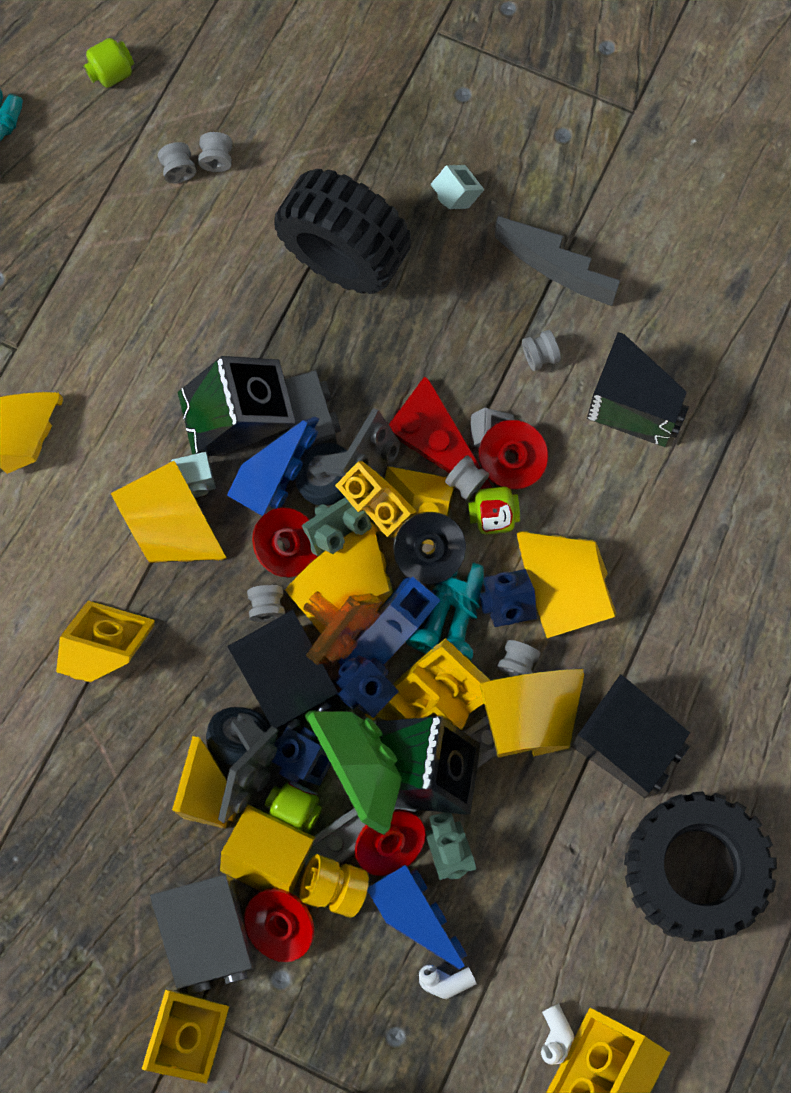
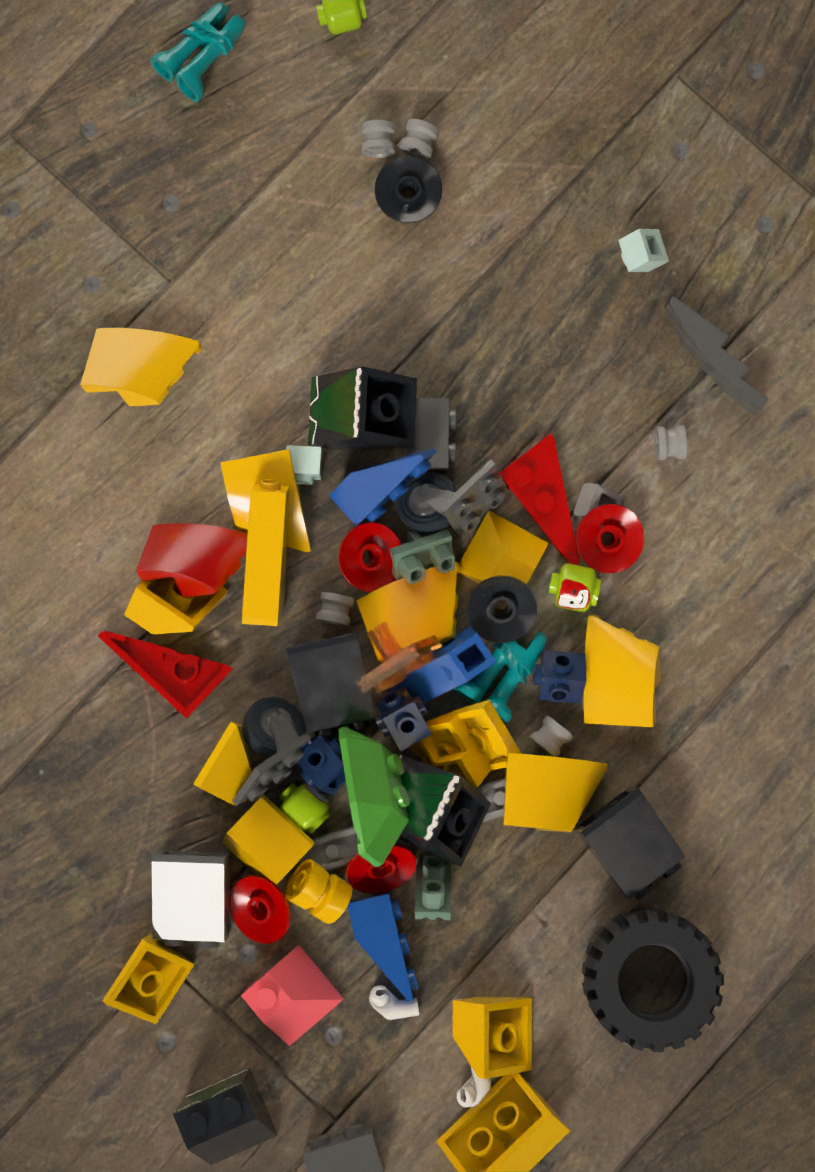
camera: 15 degrees right, 10 degrees up
(112, 592) = (193, 554): none -> red slope
(128, 718) = (175, 675): none -> red wing
(180, 565) = (266, 554): none -> yellow slope
(217, 186) = (405, 174): none -> black dish
(340, 1005) = (292, 995): none -> coral slope
(343, 231) = (516, 271): black tyre -> none
(376, 497) = (465, 541): yellow slope -> none
(467, 477) = (558, 549): light grey wheel -> none
(559, 977) = (494, 1034): none -> yellow slope
(637, 395) = (746, 519): black slope -> none

